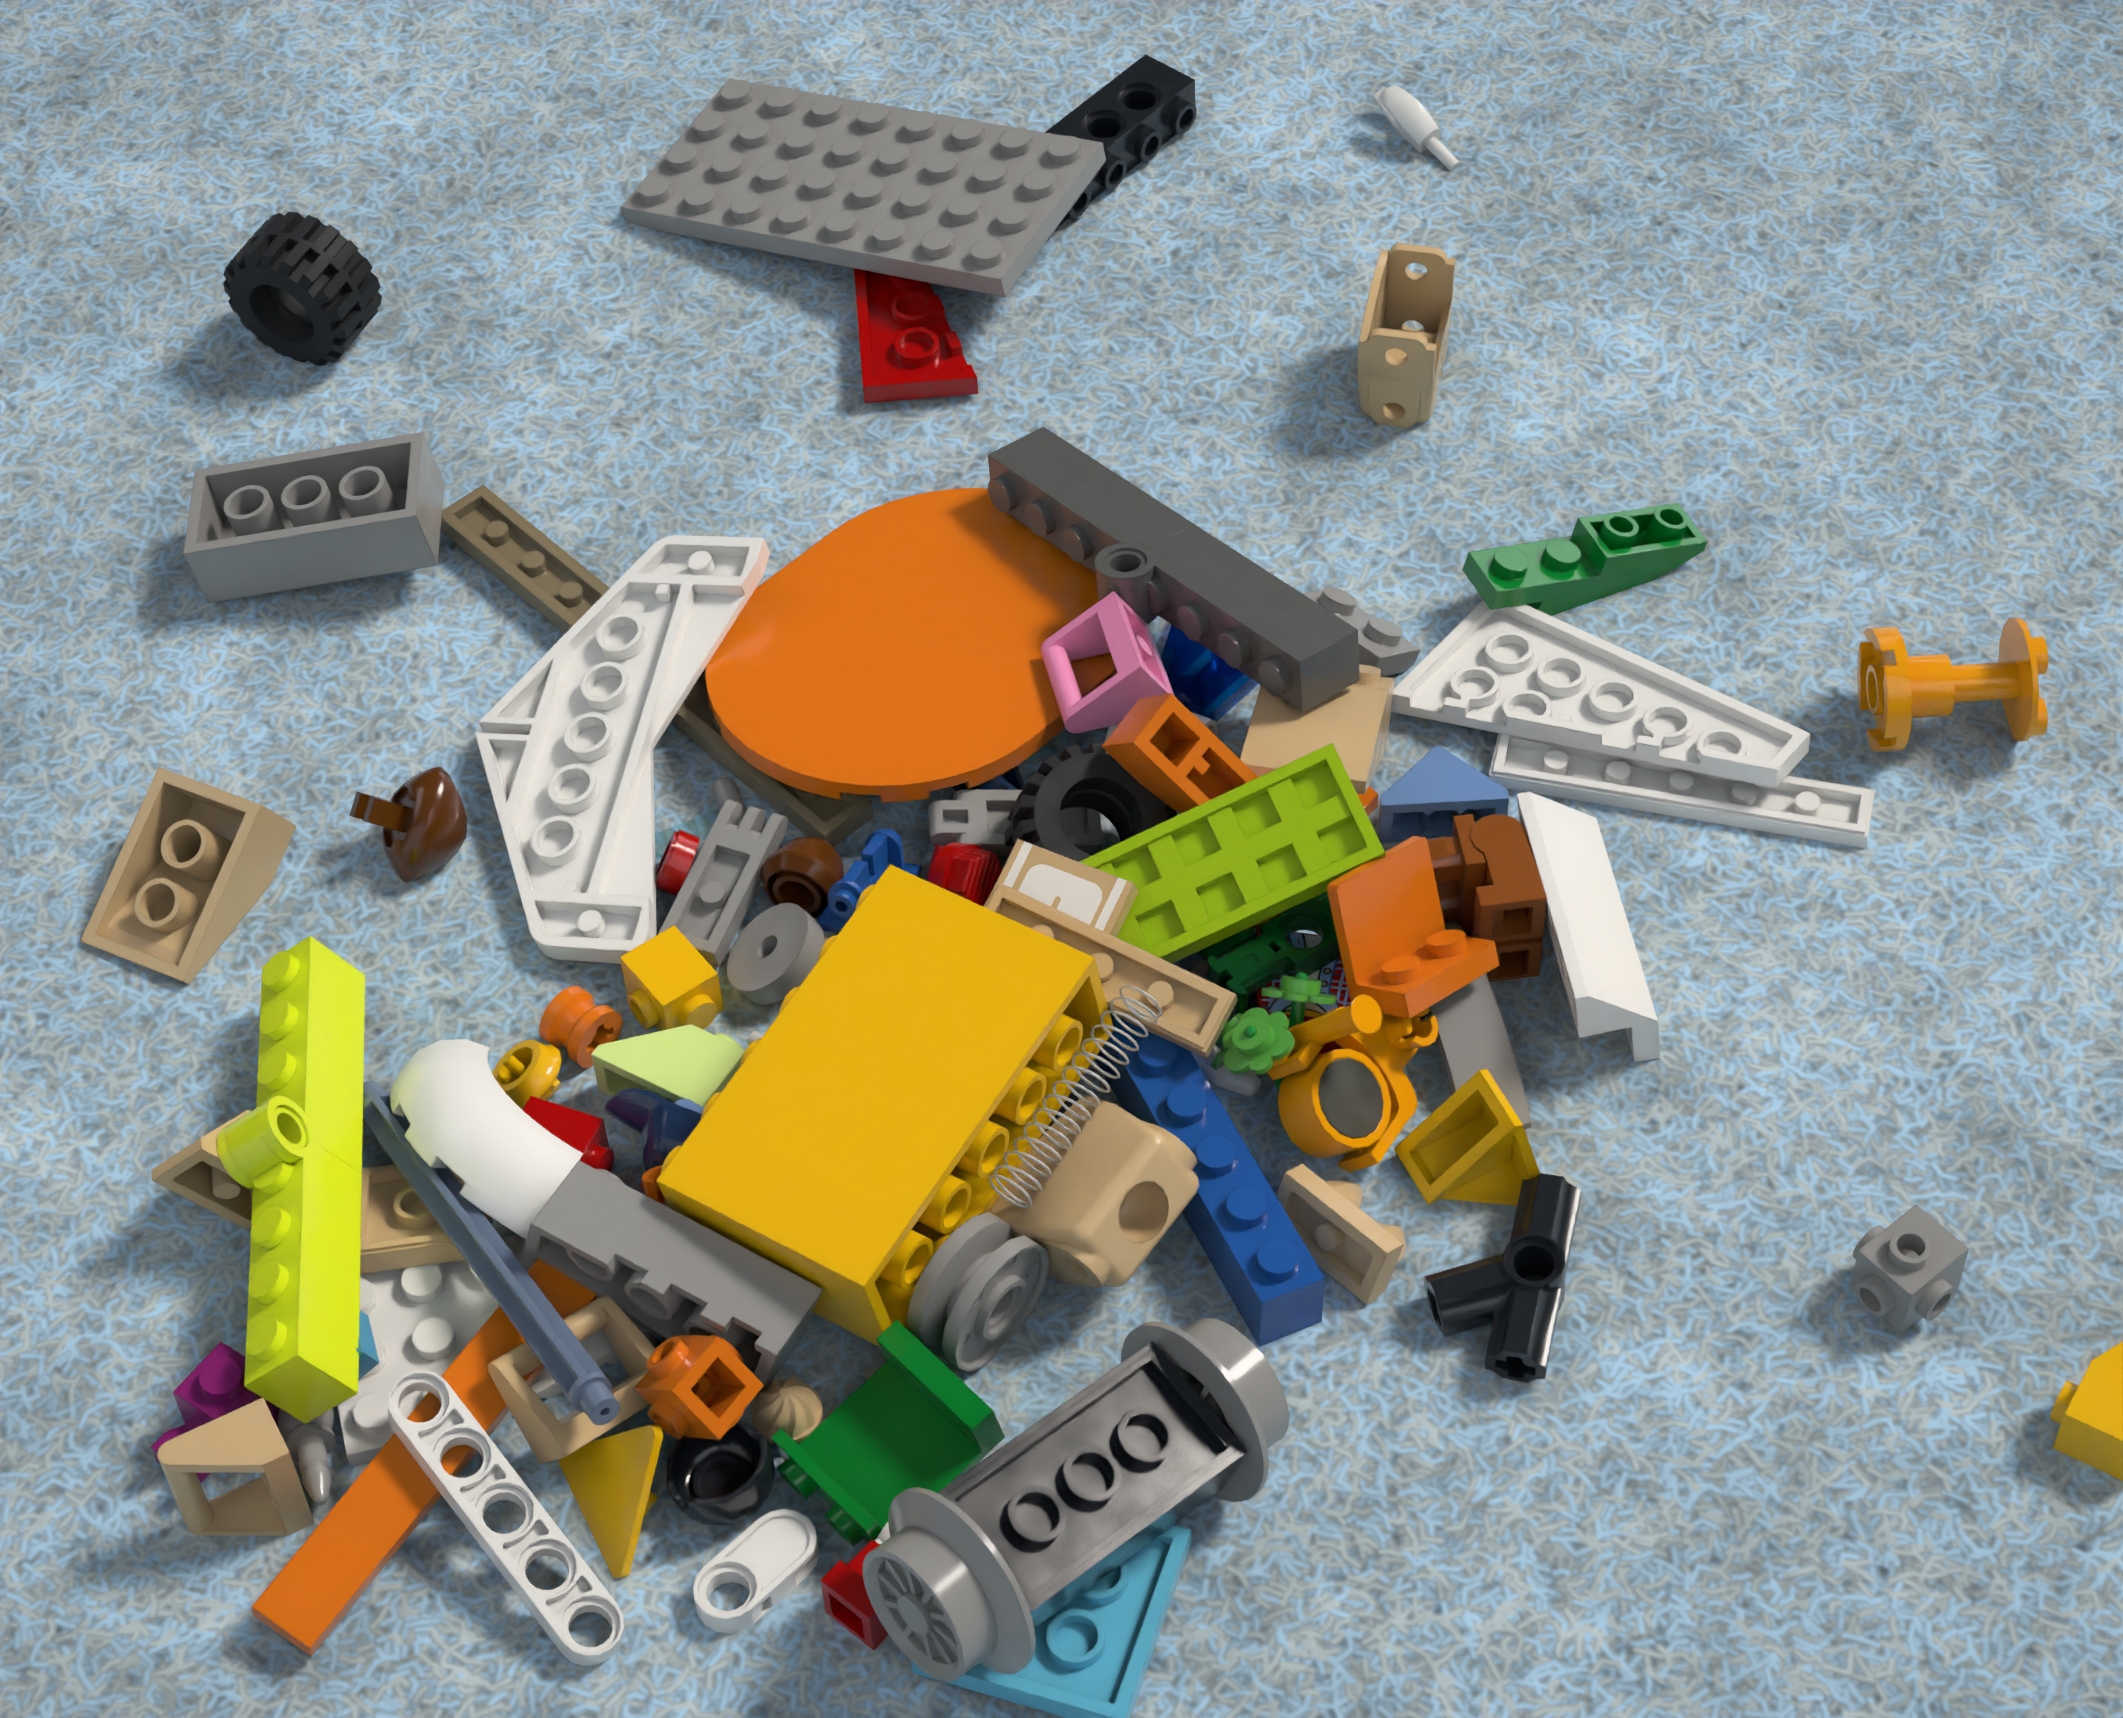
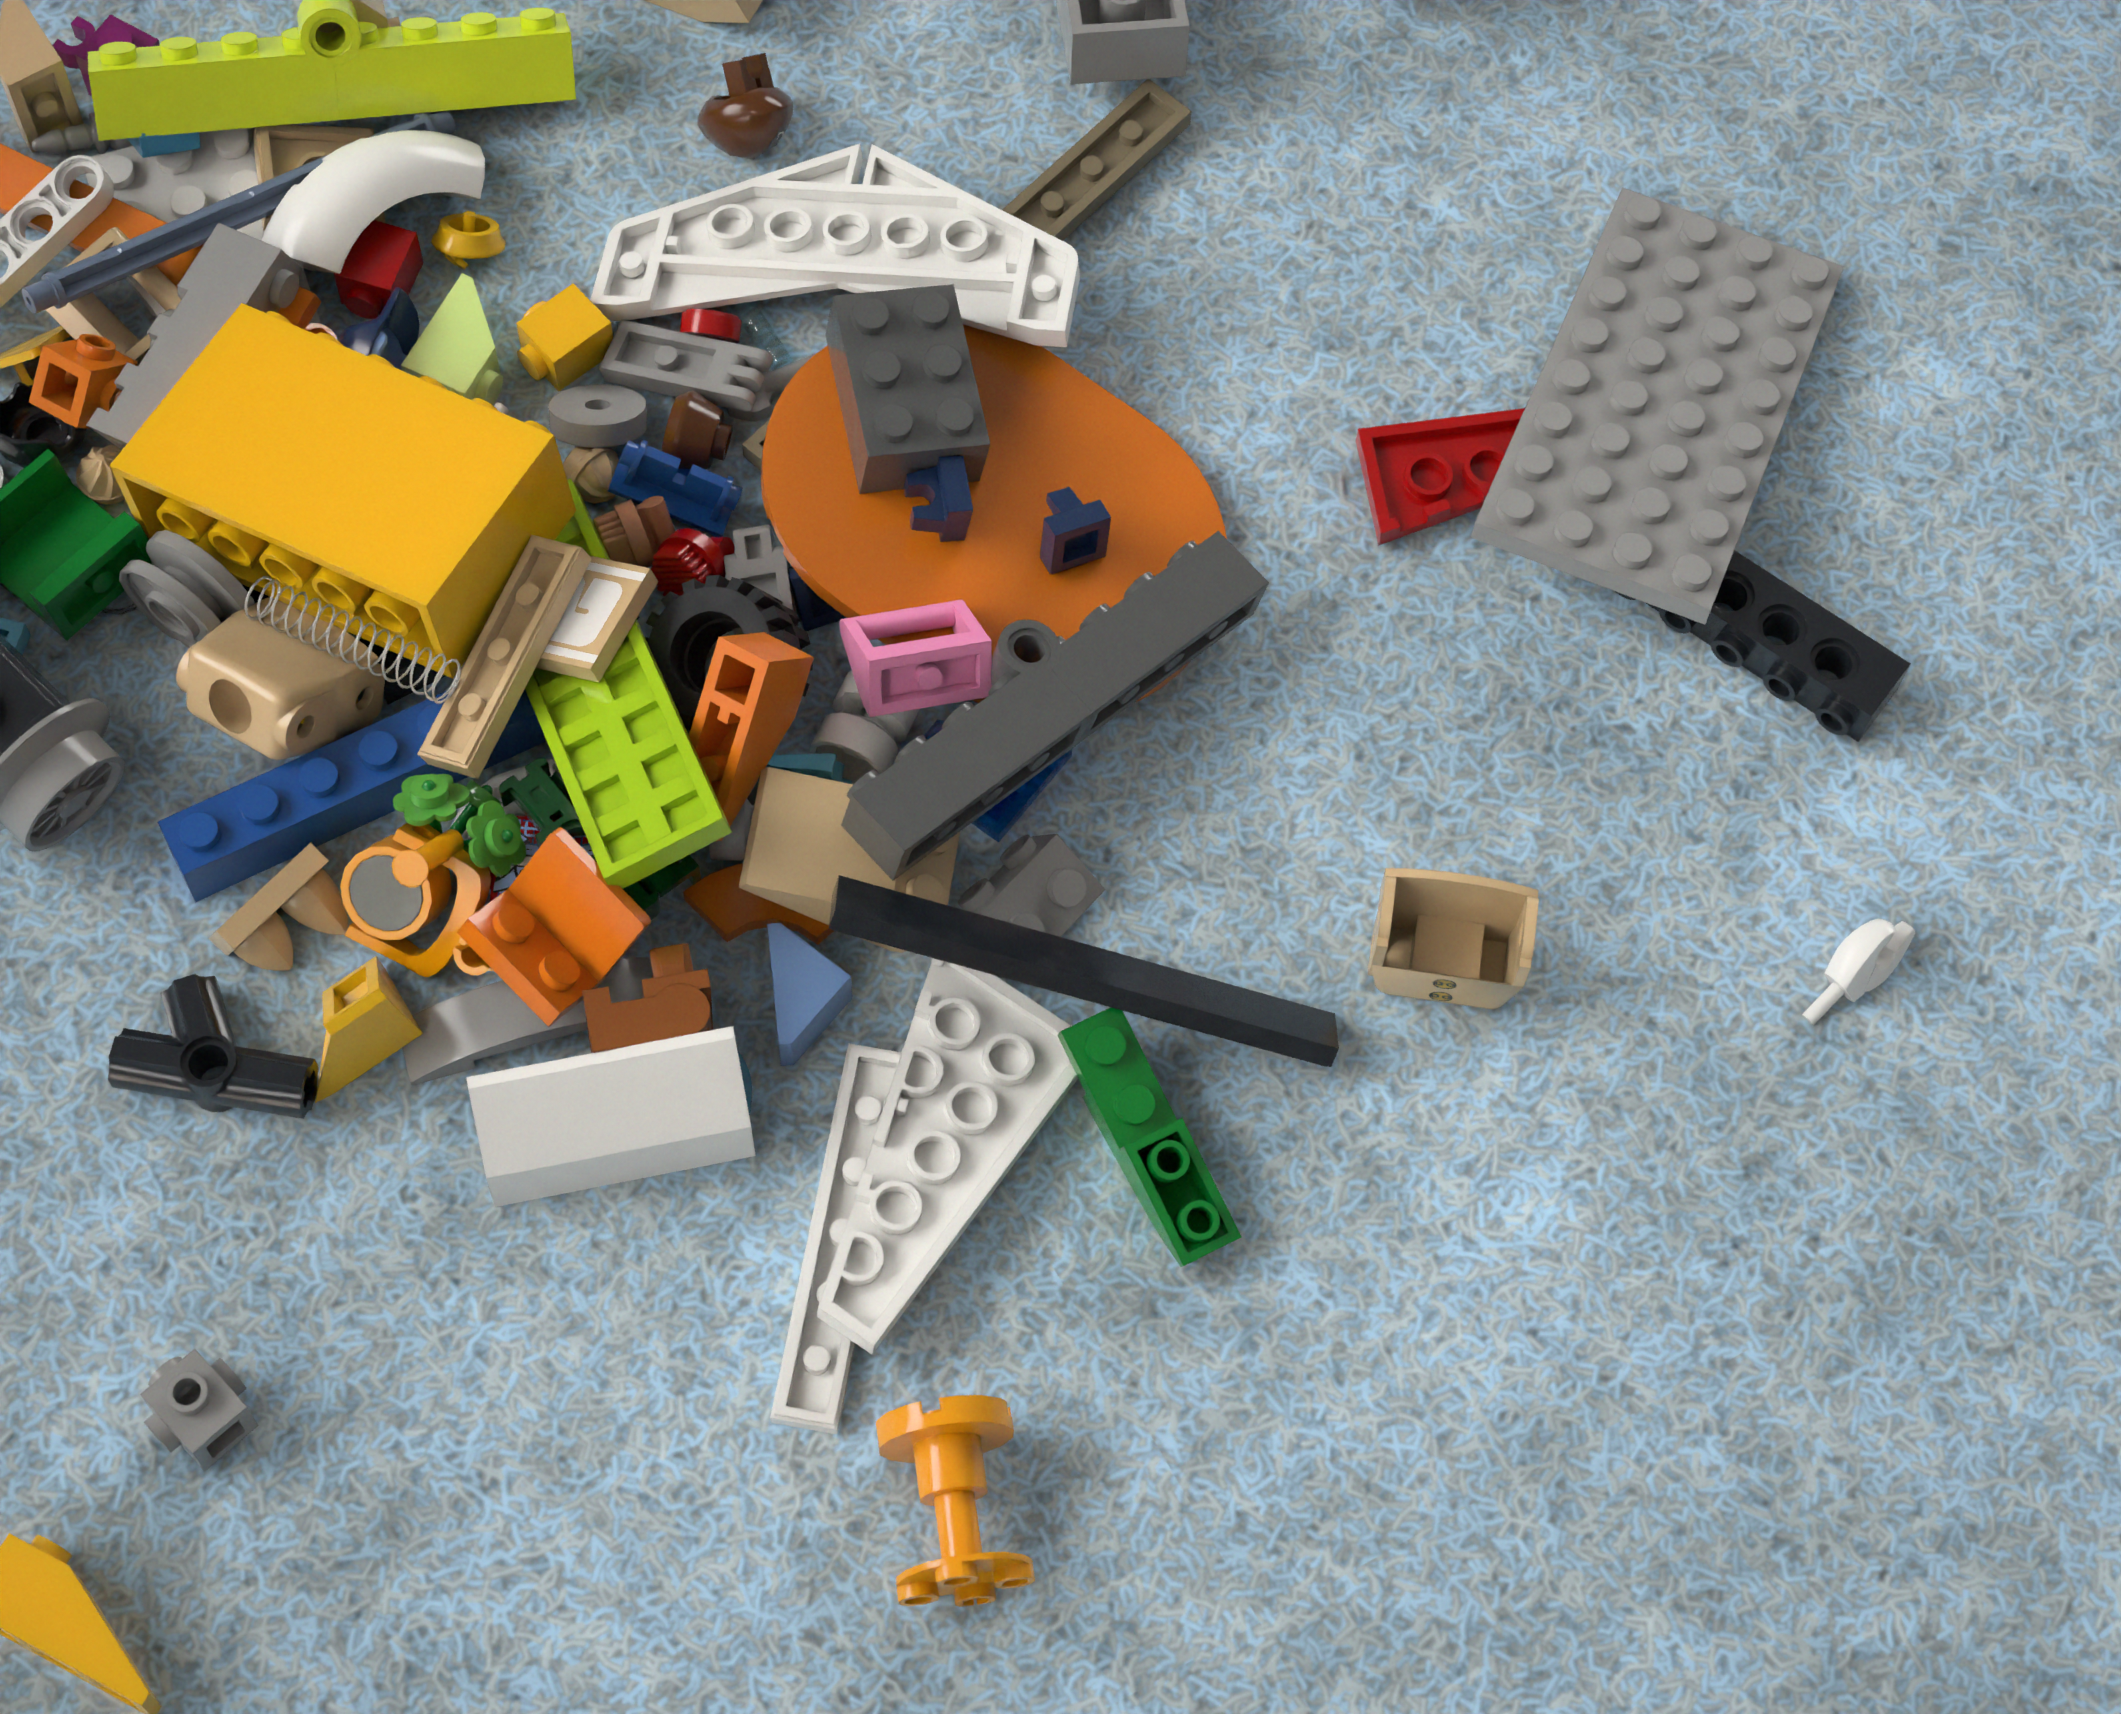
camera: 80 degrees right, 15 degrees up
(579, 1024) = (519, 272): orange wheel -> none
(812, 660) = (905, 384): none -> dark grey brick
(935, 639) = (949, 496): none -> dark blue tile
(974, 564) = (1073, 532): none -> dark blue tile
(1438, 575) = (1083, 971): none -> black tile

